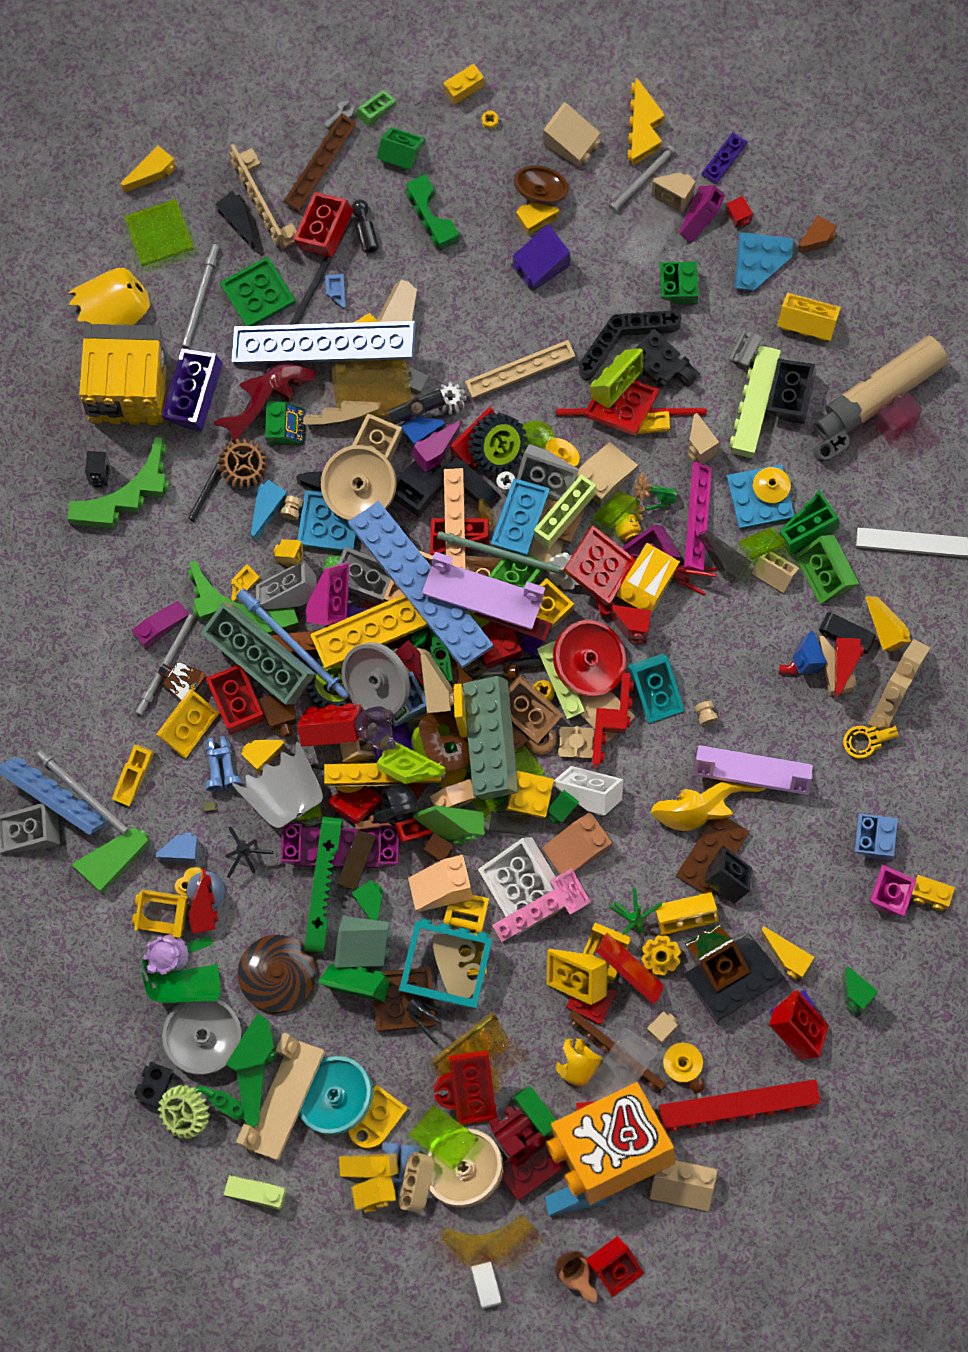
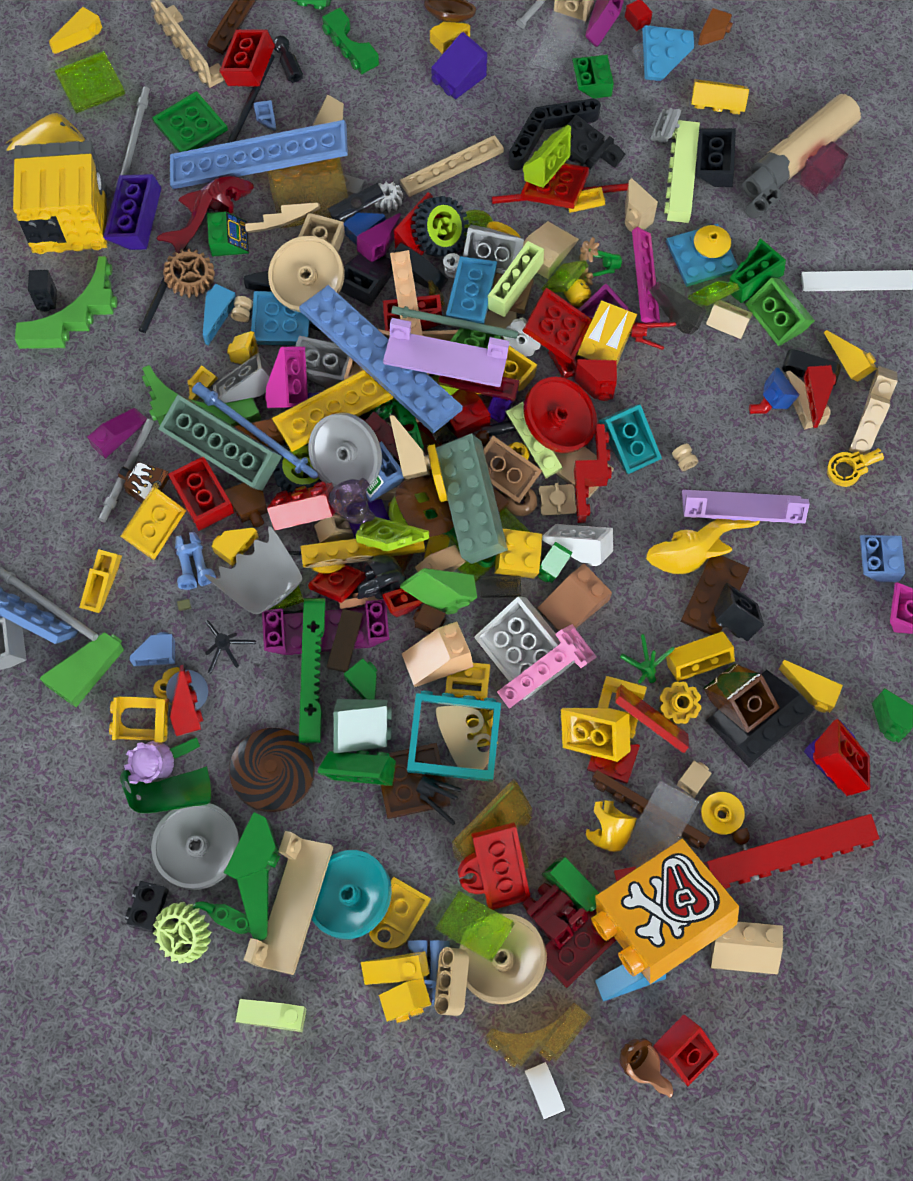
camera: 10 degrees left, 5 degrees down
(234, 213) = (160, 57): black slope -> none

